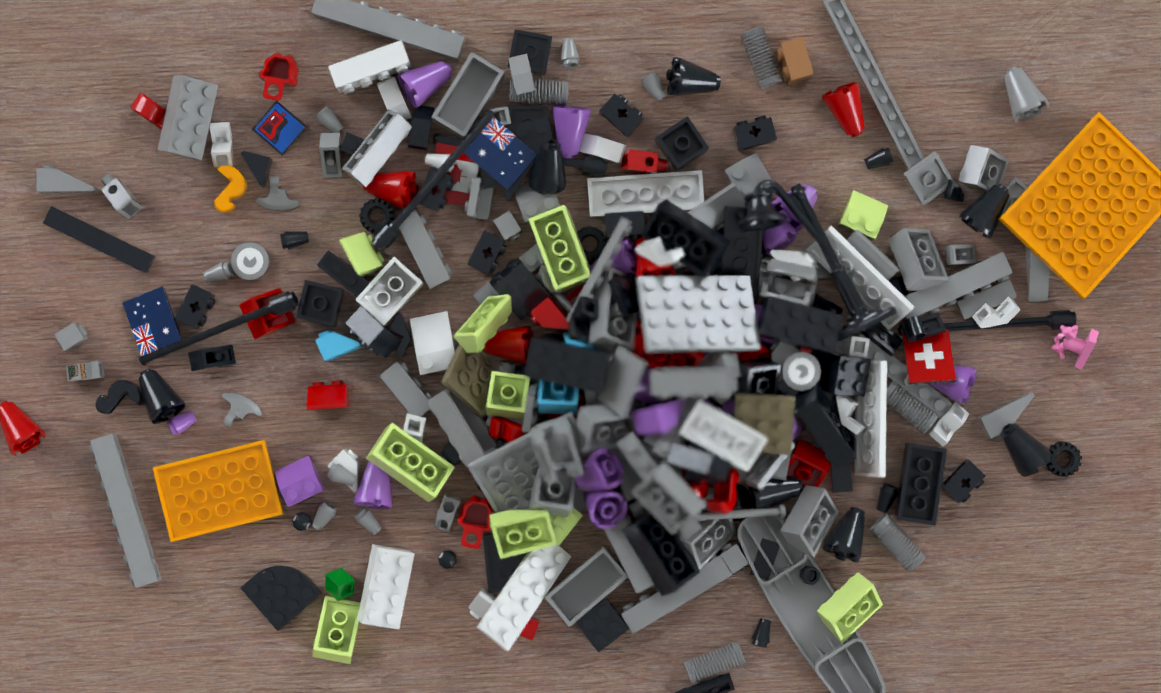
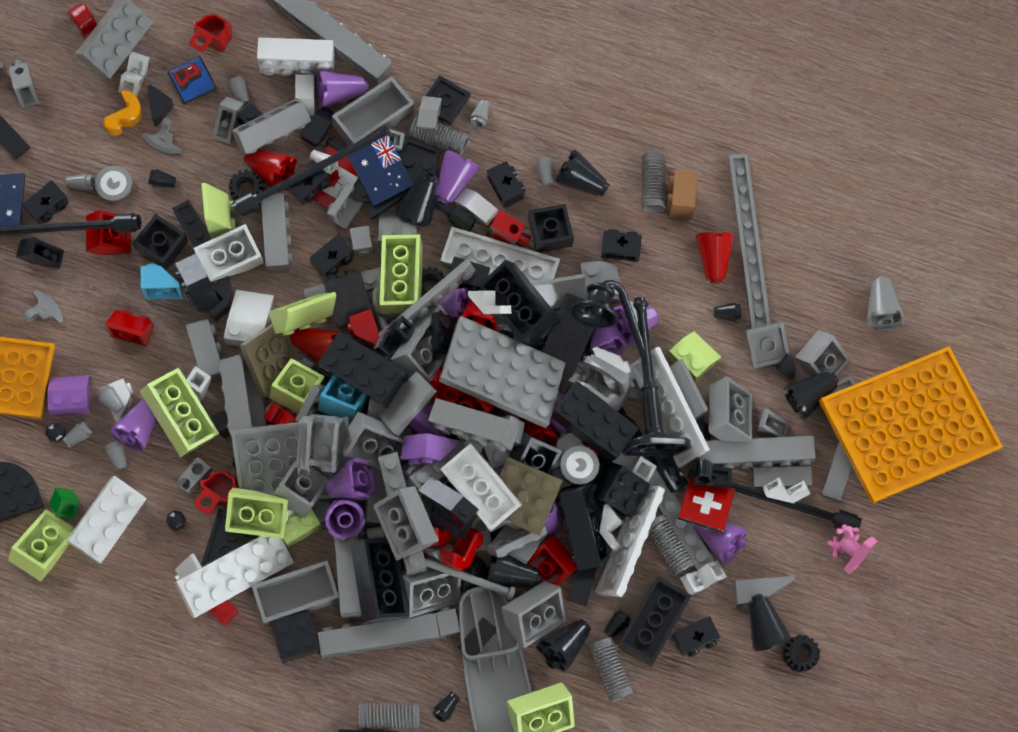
camera: 15 degrees right, 15 degrees down
(809, 575) = (514, 668): black tile -> none

